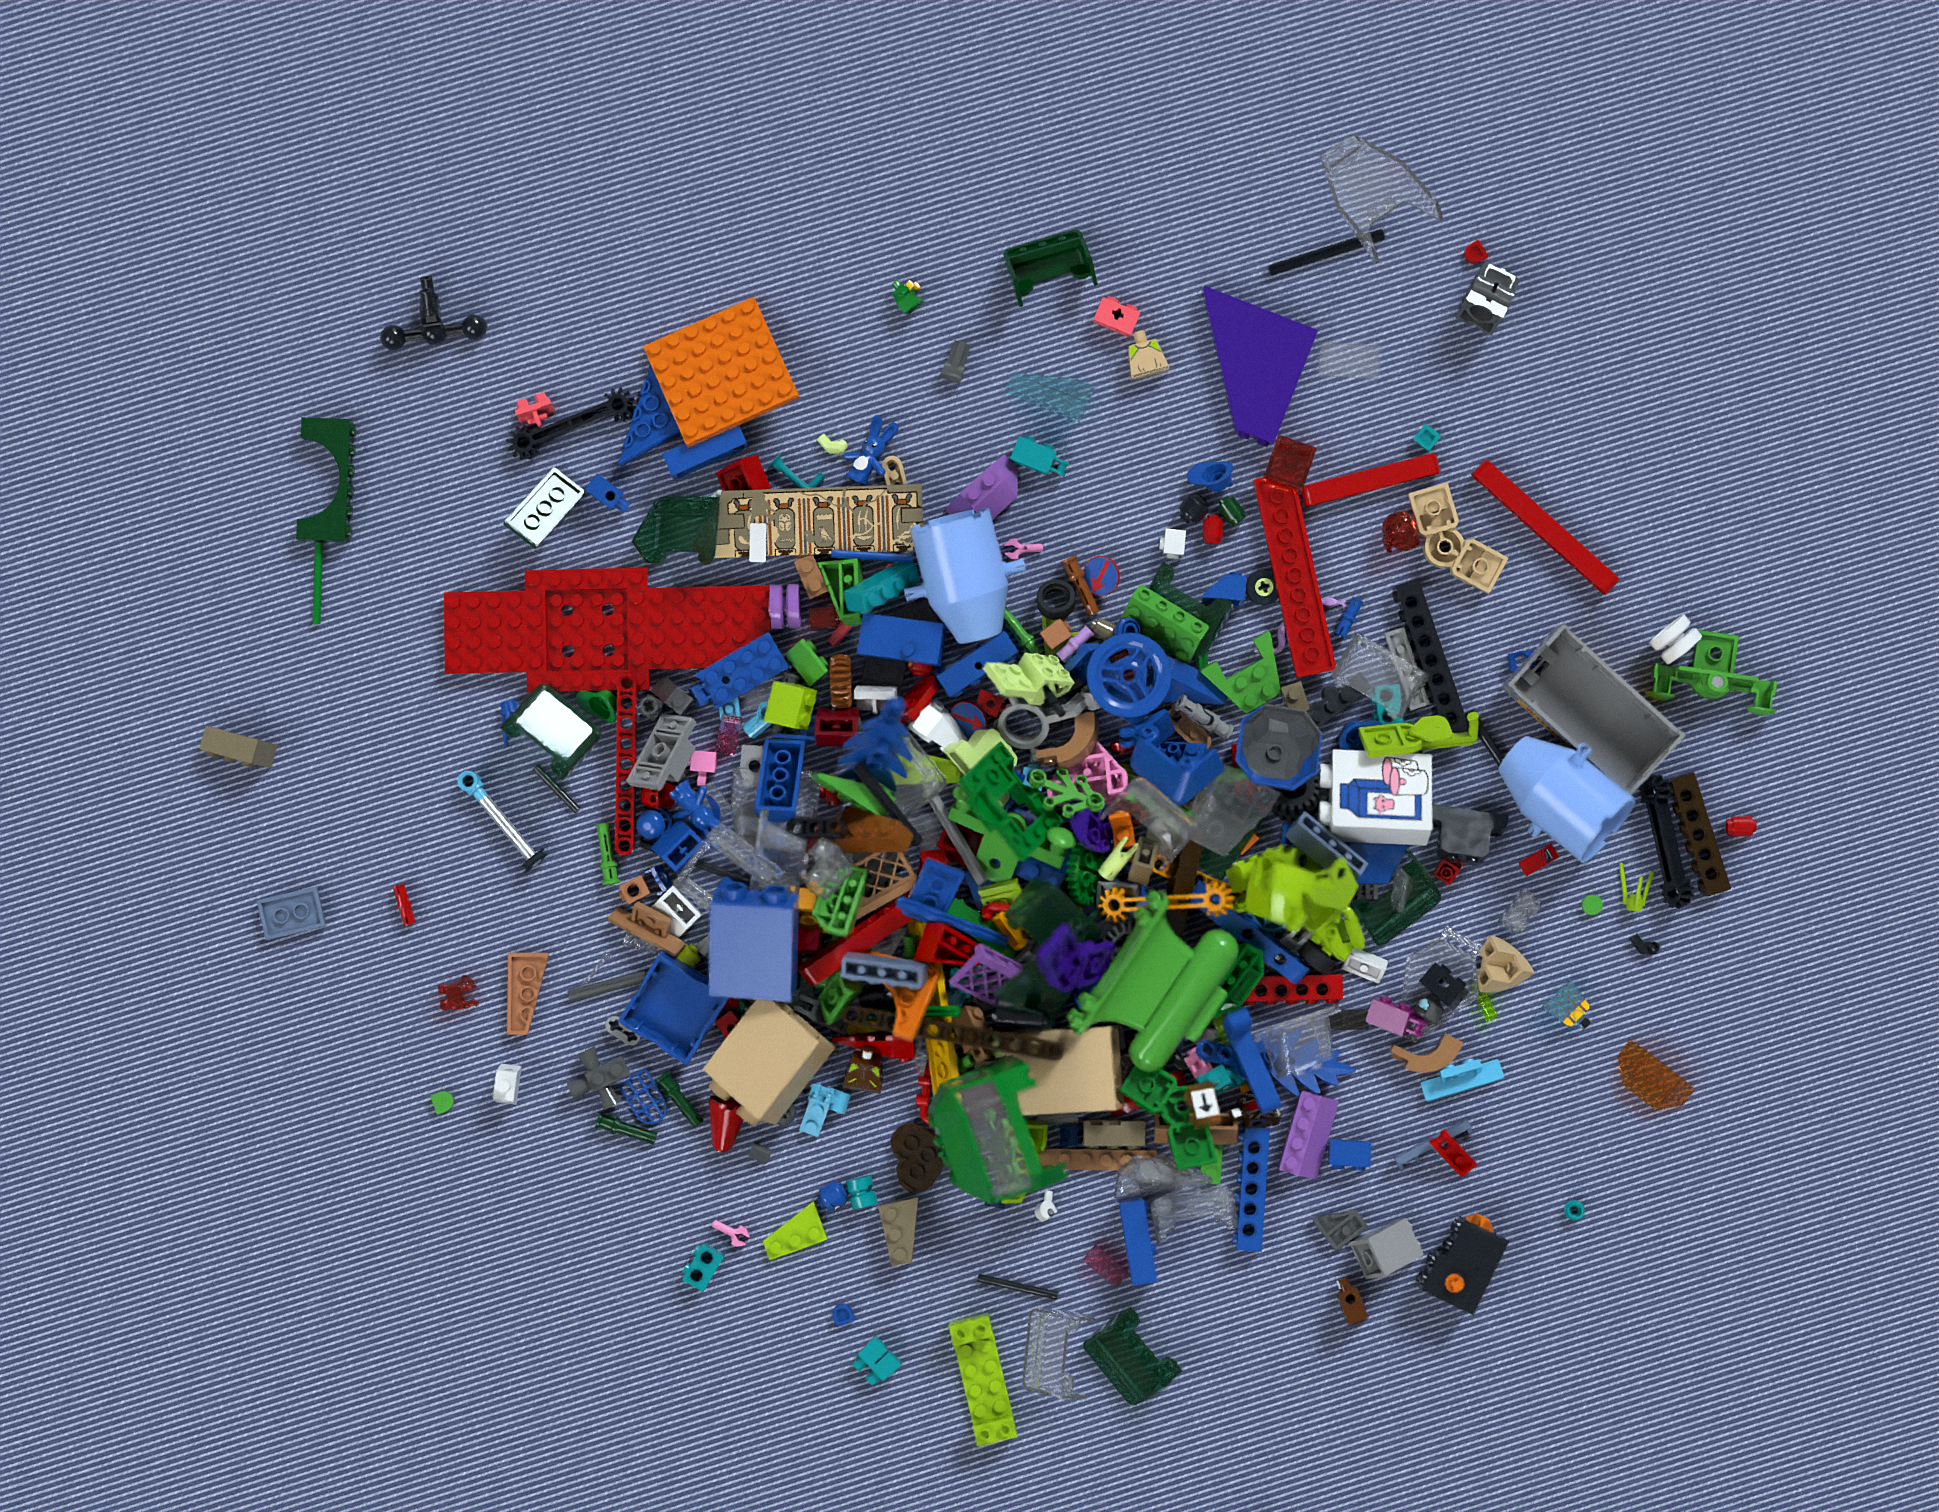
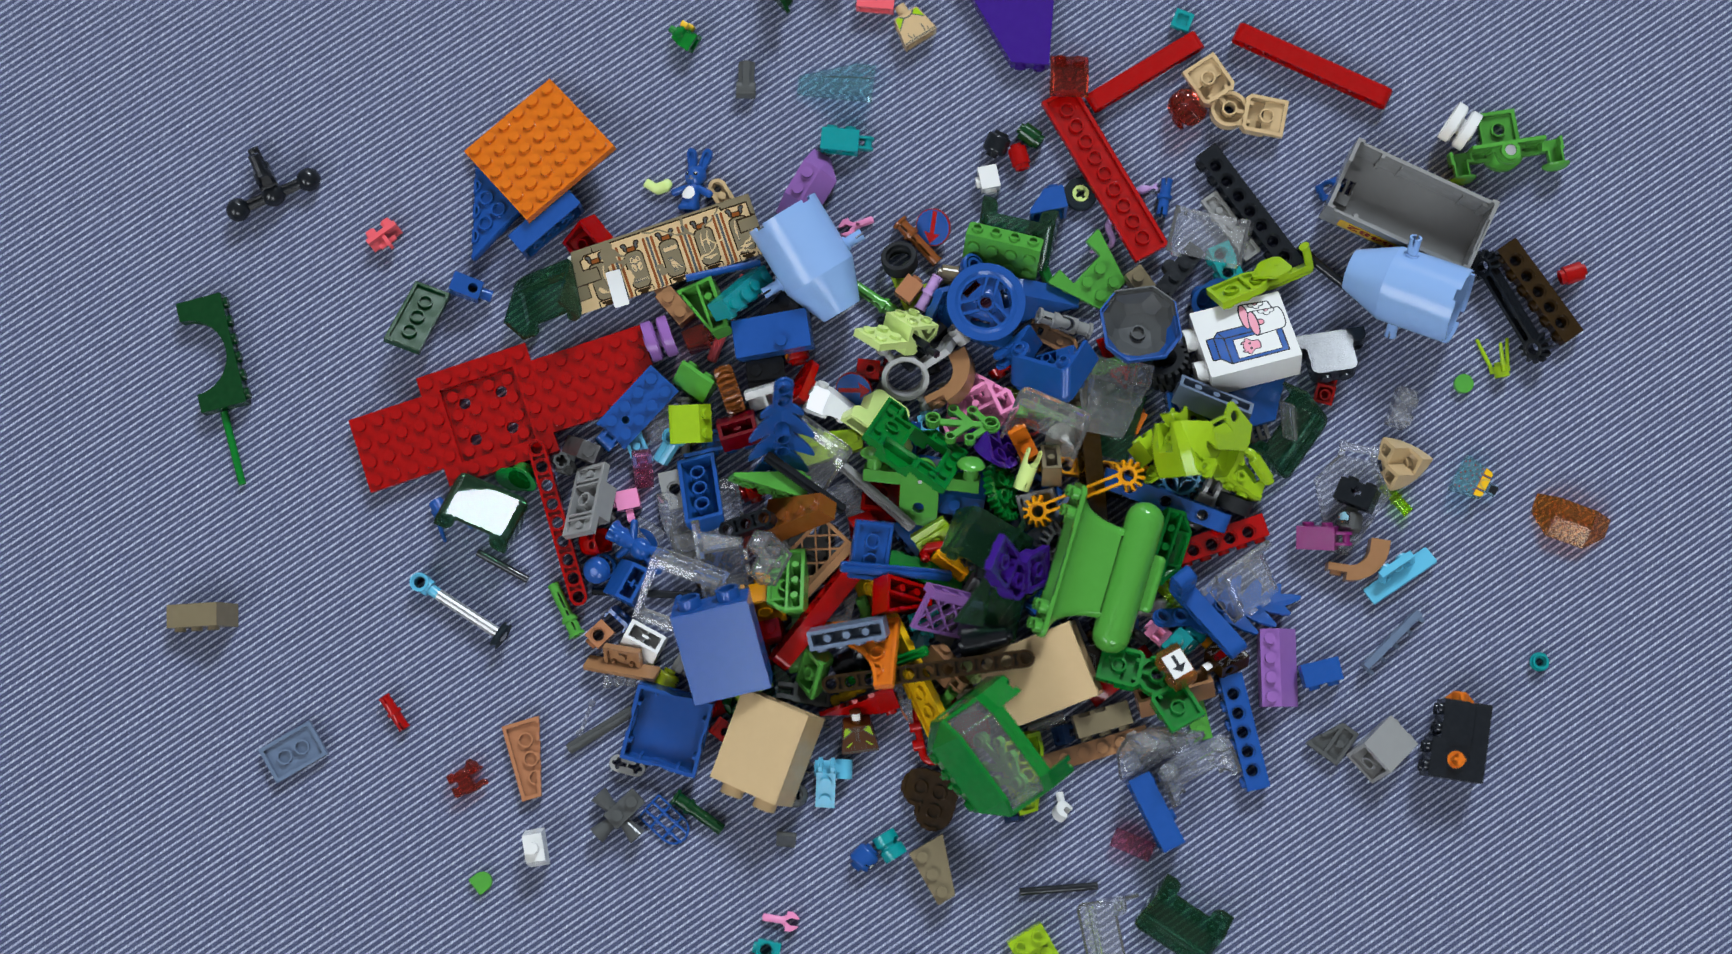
camera: 15 degrees left, 5 degrees down
(571, 424) = (419, 238): black arm -> none
(616, 1126) = (646, 854): dark green pin -> none
(724, 1122) = (744, 819): red cone -> none
(778, 464) = (614, 216): teal piece -> none
(797, 1233) = (841, 903): lime wing -> none
(962, 670) = (836, 345): blue brick -> none
(1213, 475) = (1005, 109): blue piece -> none
(1349, 1020) = (1281, 552): clear smoke slope -> none
(1353, 1312) = (1369, 817): reddish brown torso -> none
(1365, 965) = (1279, 500): white slope -> none
(1453, 1153) = (1414, 643): red plate -> none
(1538, 860) = (1402, 359): red sticker -> none
(1644, 948) = (1522, 407): black arm -> none

